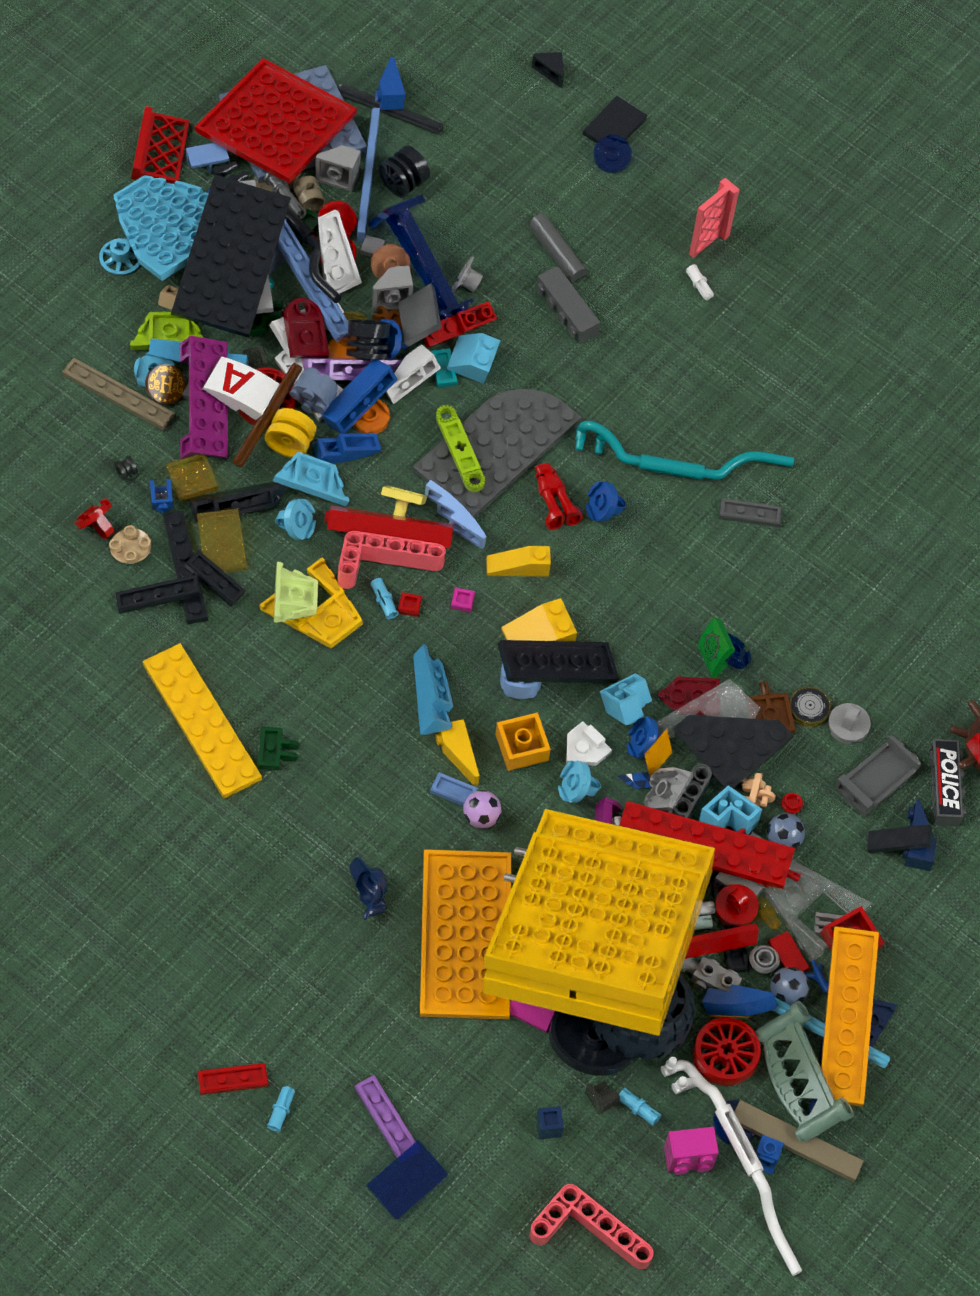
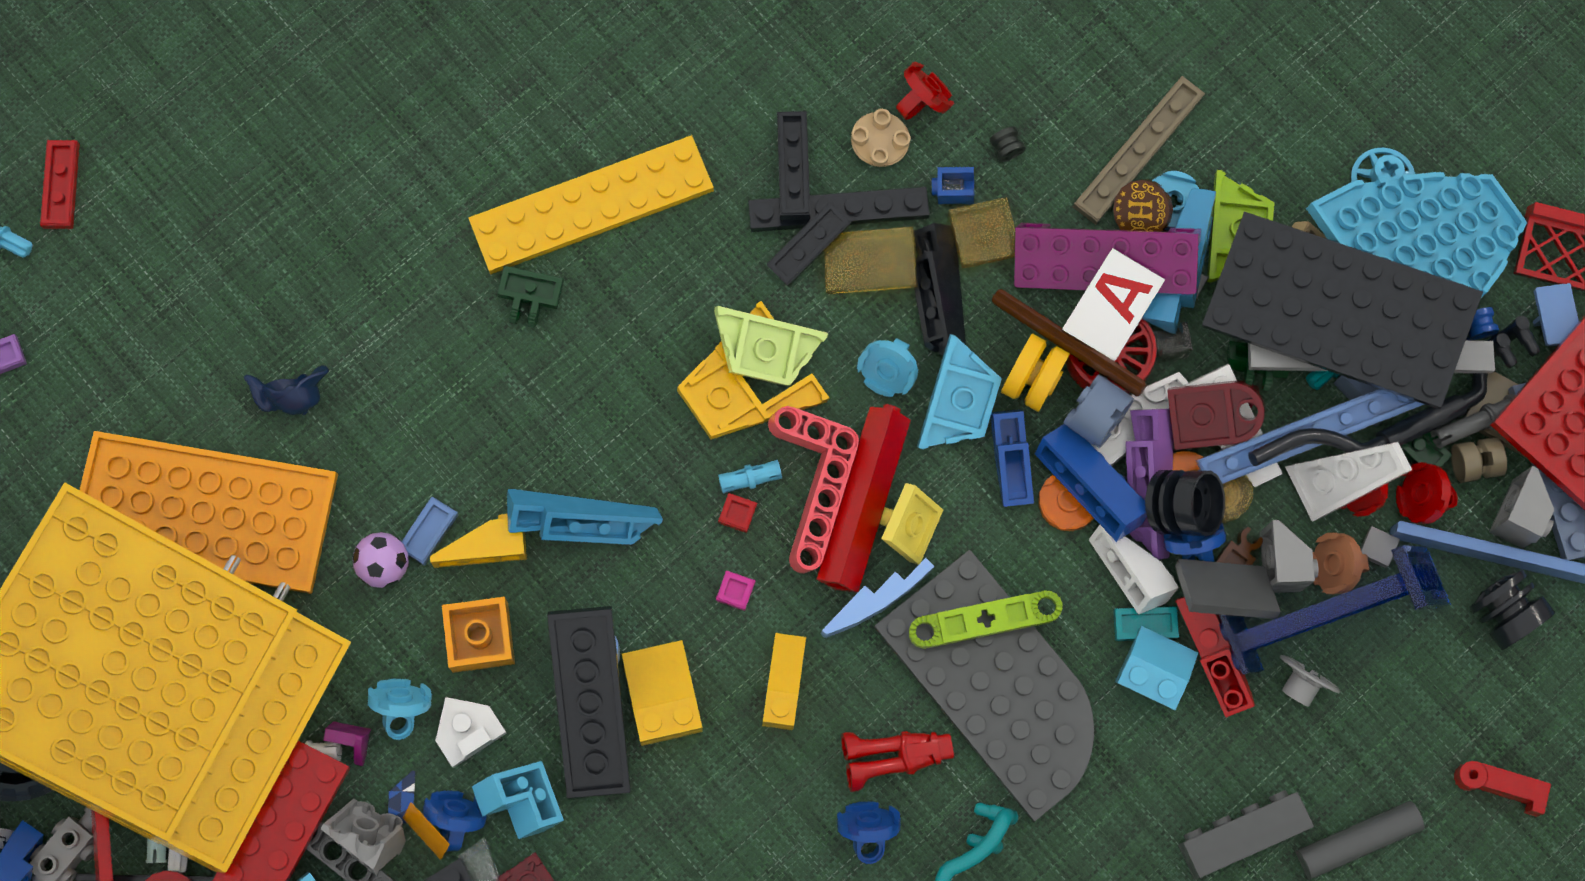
camera: 100 degrees right, 15 degrees up
(513, 162) = (1504, 783): none -> red leg

